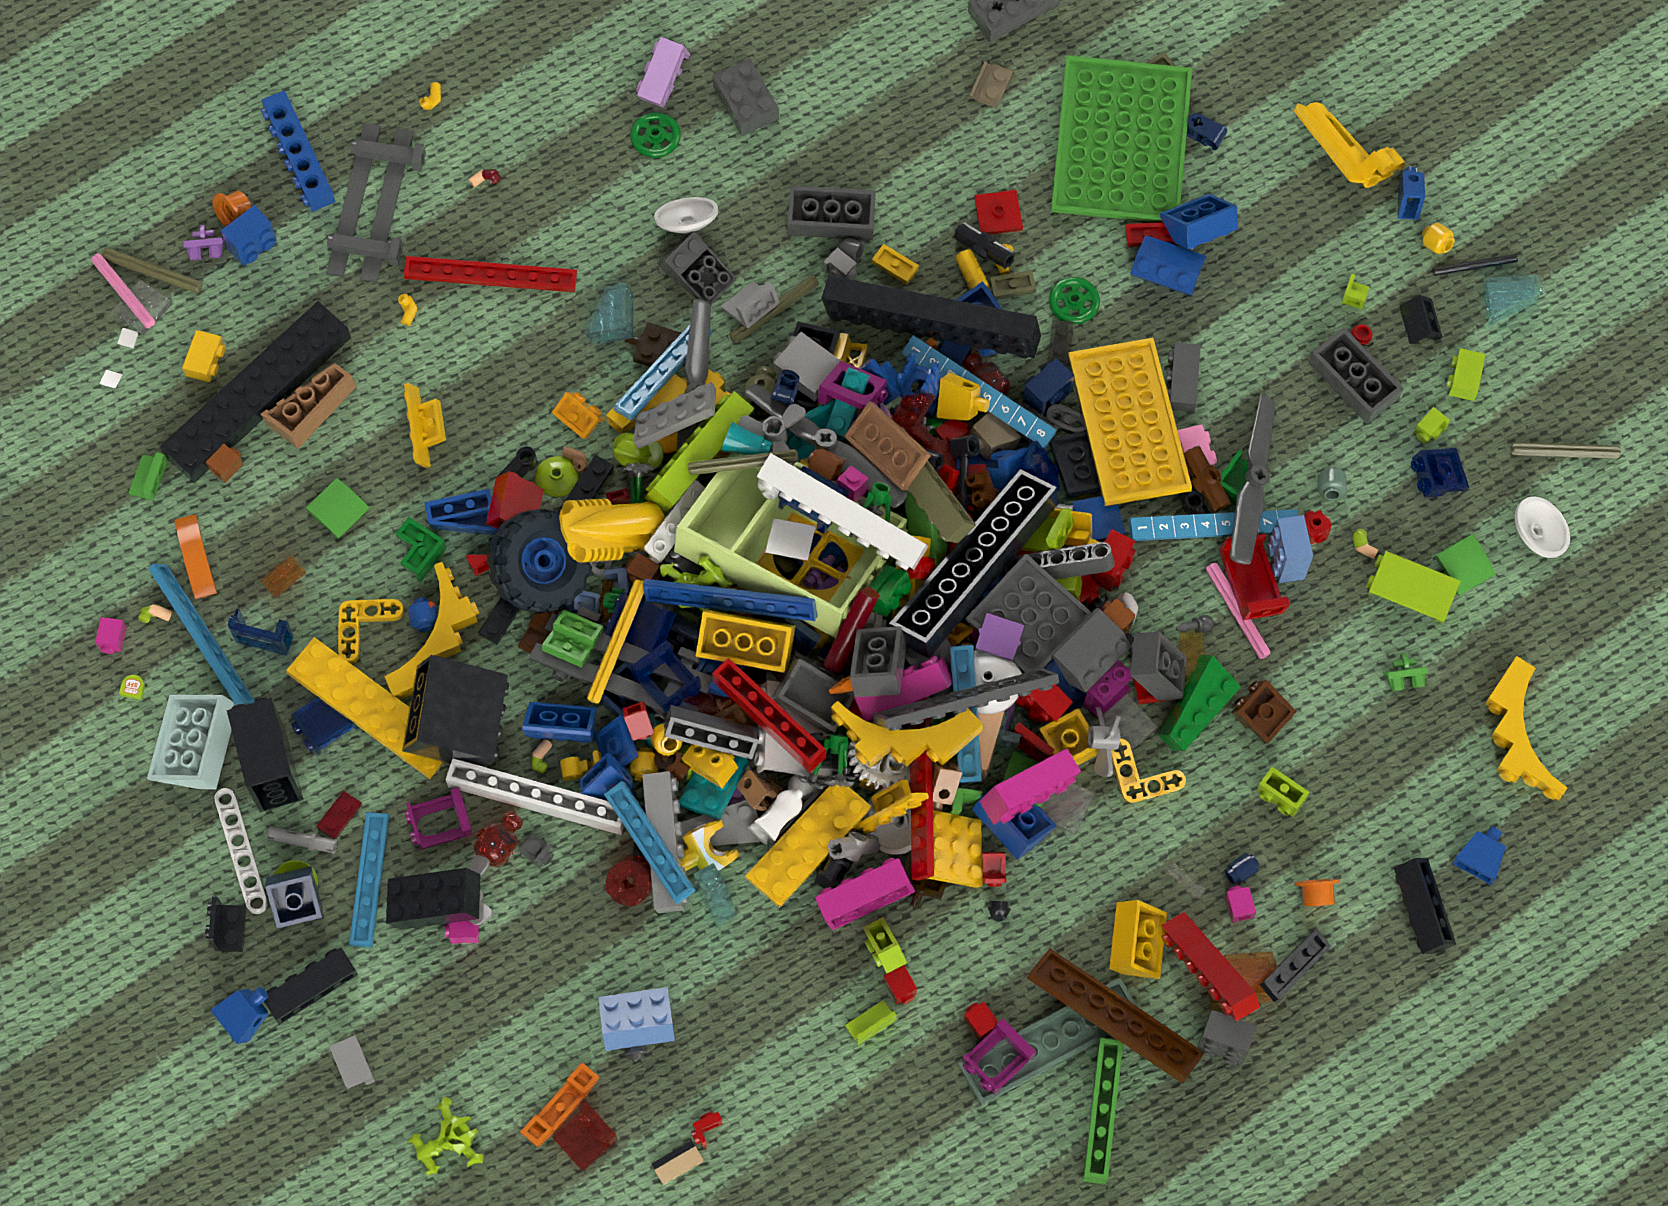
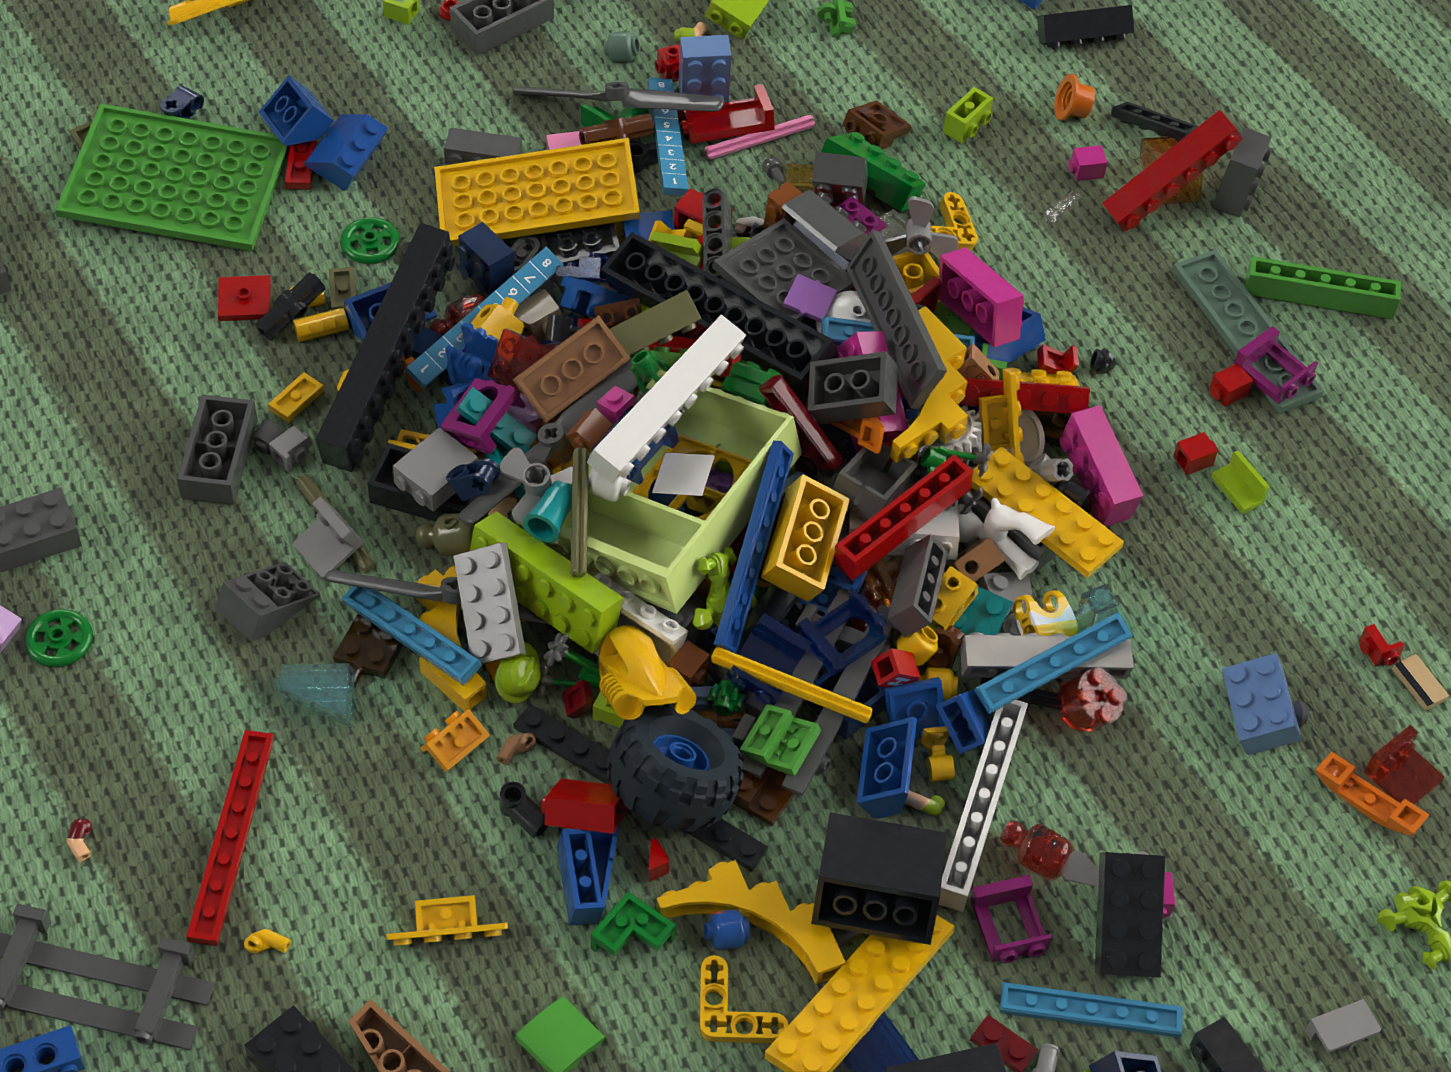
camera: 90 degrees left, 15 degrees down
(537, 851) = (1049, 808): dark grey bracket -> none
(559, 485) = (536, 781): lime dish -> none
(686, 214) = (191, 597): white dish -> none
(884, 945) = (1157, 456): lime brick -> none
(991, 84) = (71, 291): dark tan plate -> none
(1116, 1015) = (1223, 261): reddish brown plate -> none
(1137, 939) = (1131, 250): yellow slope -> none
(1241, 868) = (1049, 158): dark blue brick -> none

